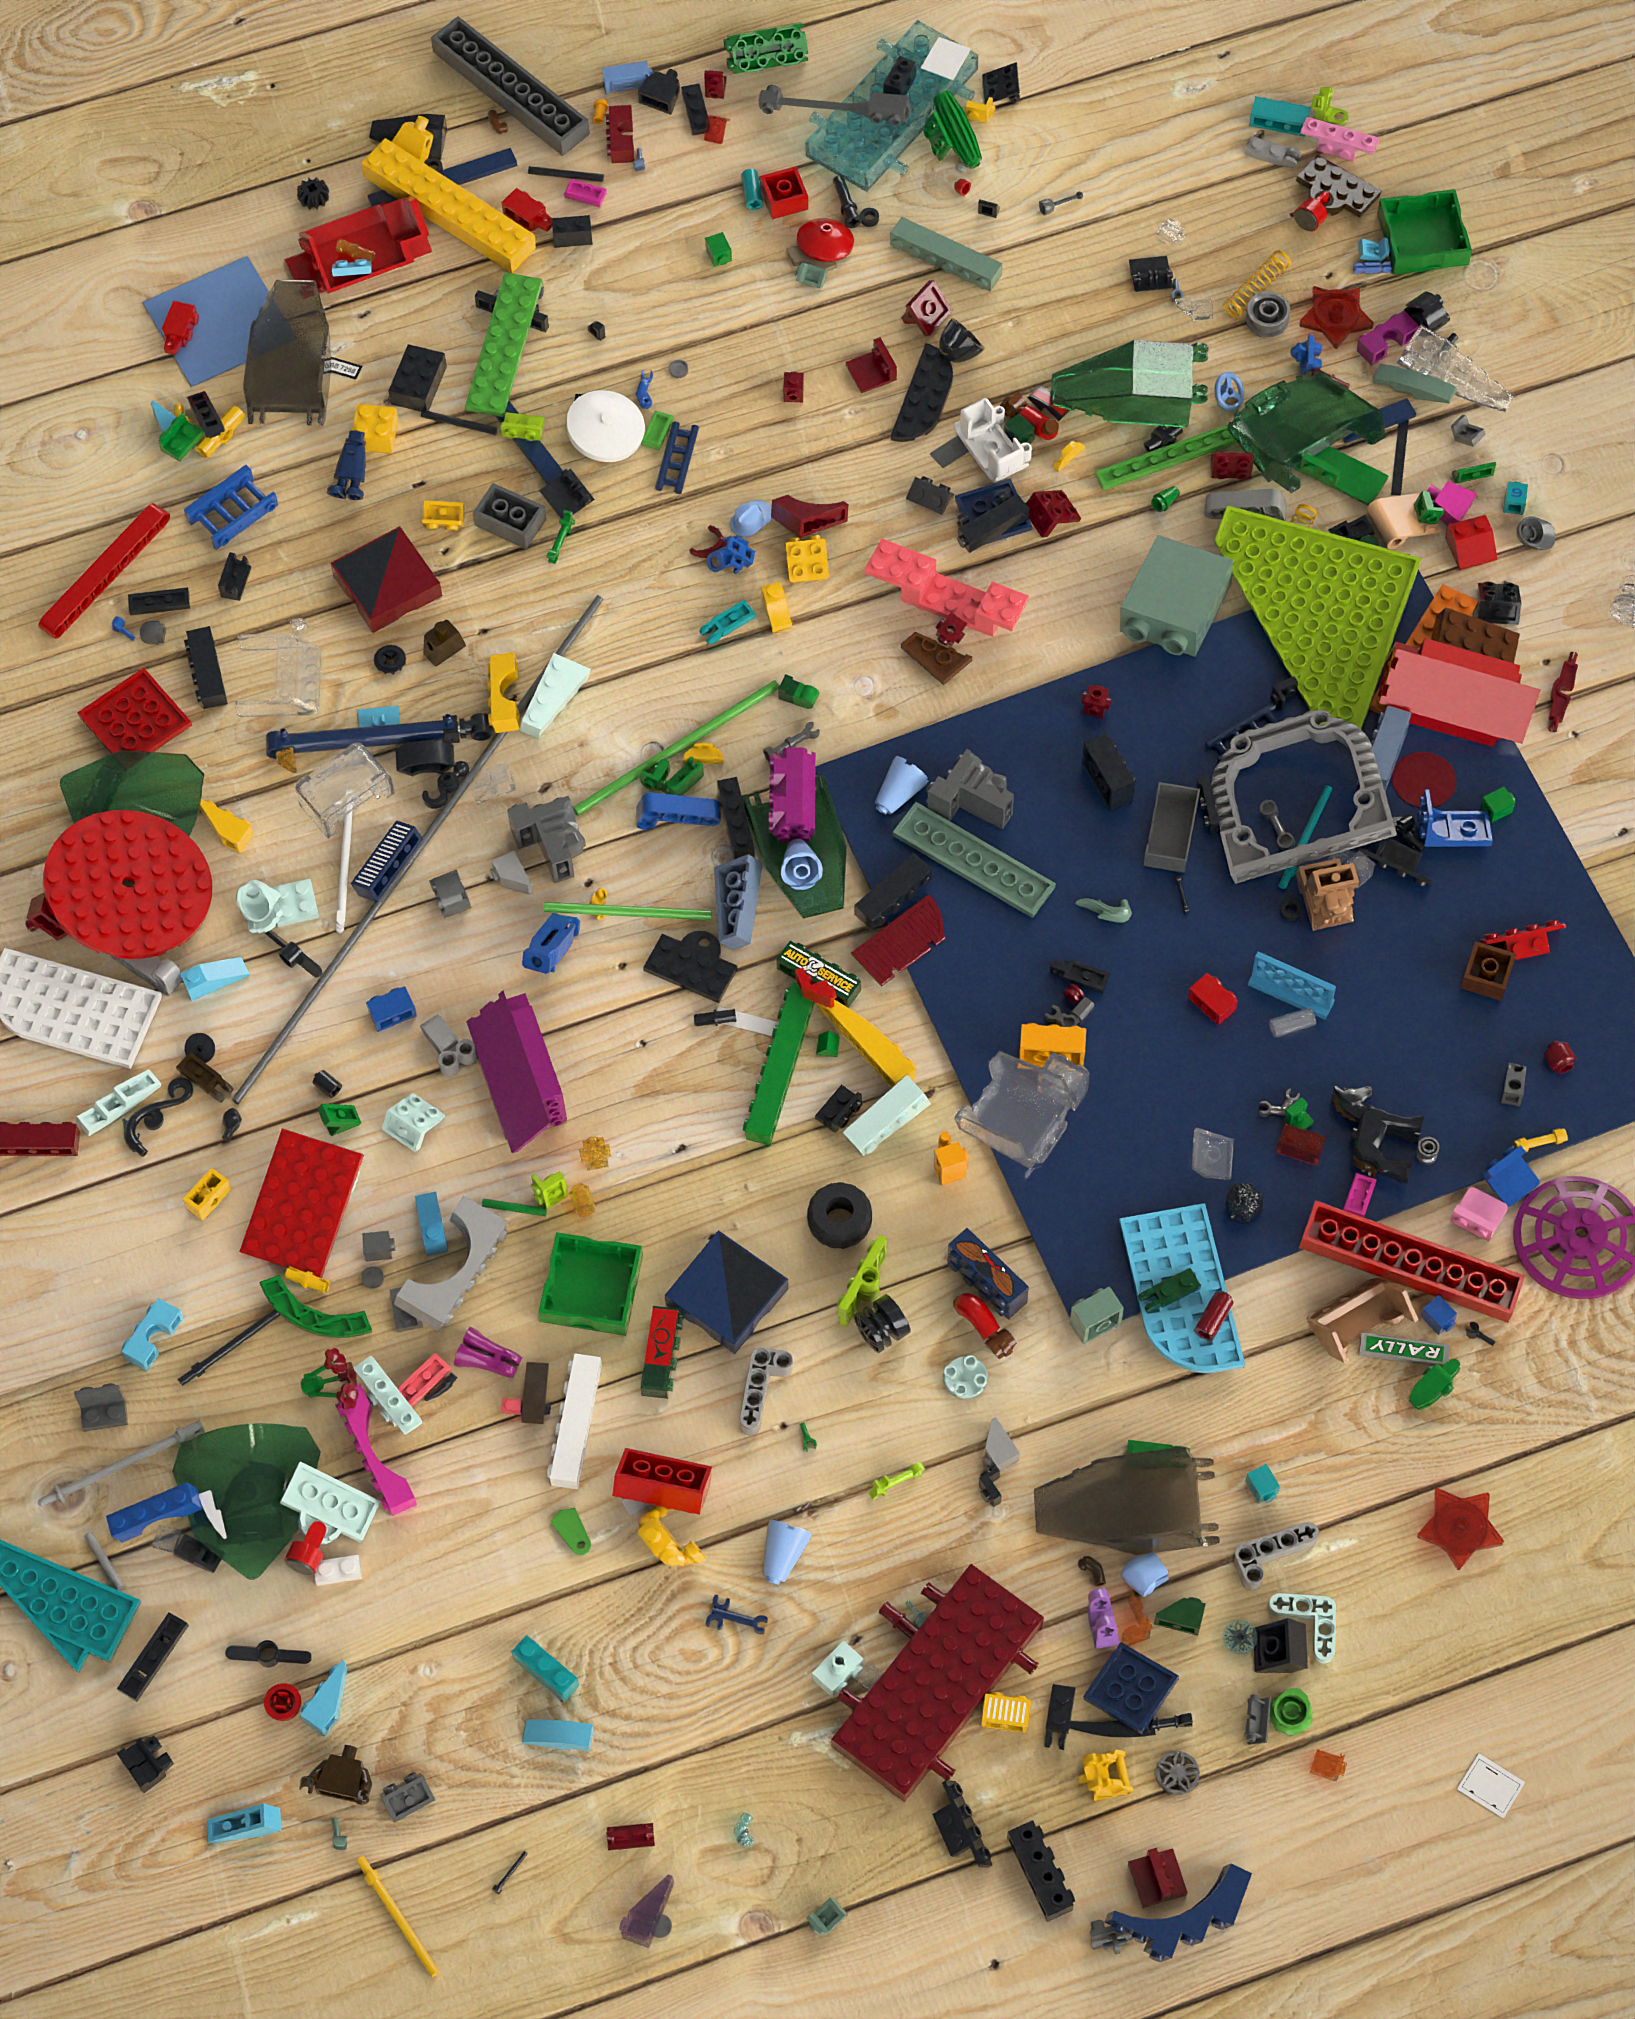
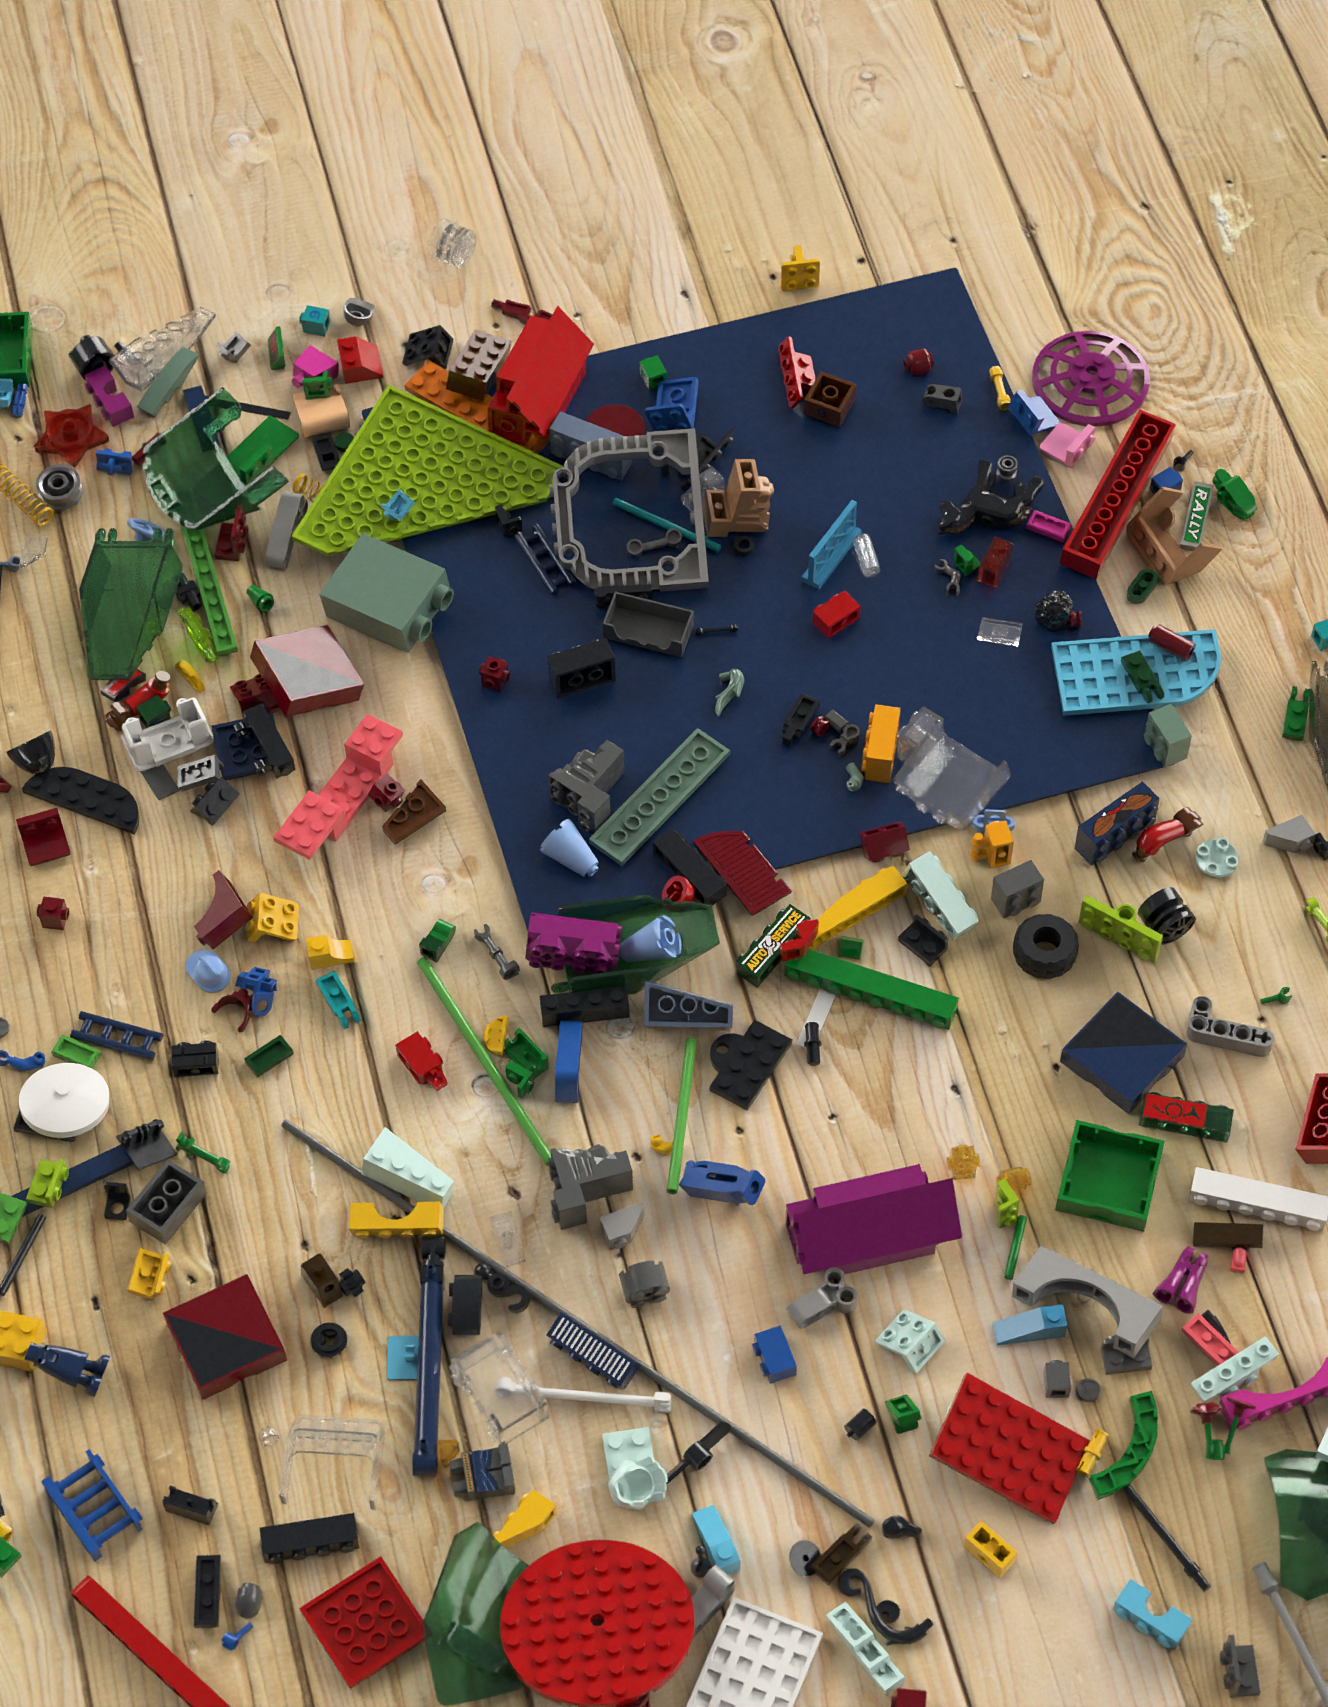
camera: 85 degrees left, 5 degrees down
(189, 963) = (700, 1563): none -> dark grey hinge
(269, 783) = (485, 1473): none -> dark grey hips
(442, 667) = (351, 1282): none -> black gear
(518, 480) = (116, 1193): none -> black bracket
(655, 519) = (195, 1059): none -> black brick
(666, 576) = (268, 1056): none -> dark green tile
(668, 695) = (421, 1061): none -> red hinge
(861, 883) = (678, 890): none -> red piece
(898, 1184) = (1017, 889): none -> dark grey brick
(944, 1062) = (884, 842): none -> dark red brick
(952, 473) = (199, 772): none -> bracket
(980, 1163) = (991, 816): none -> medium blue bracket
(1011, 1031) = (856, 777): none -> sand green arm
(1076, 542) = (306, 670): none -> tile
(1107, 450) = (198, 634): none -> clear neon green plate
(1240, 1226) = (1075, 619): none -> dark red bush
(1273, 588) = (398, 506): none -> medium azure bracket
(1300, 1295) = (1140, 587): none -> dark green plate

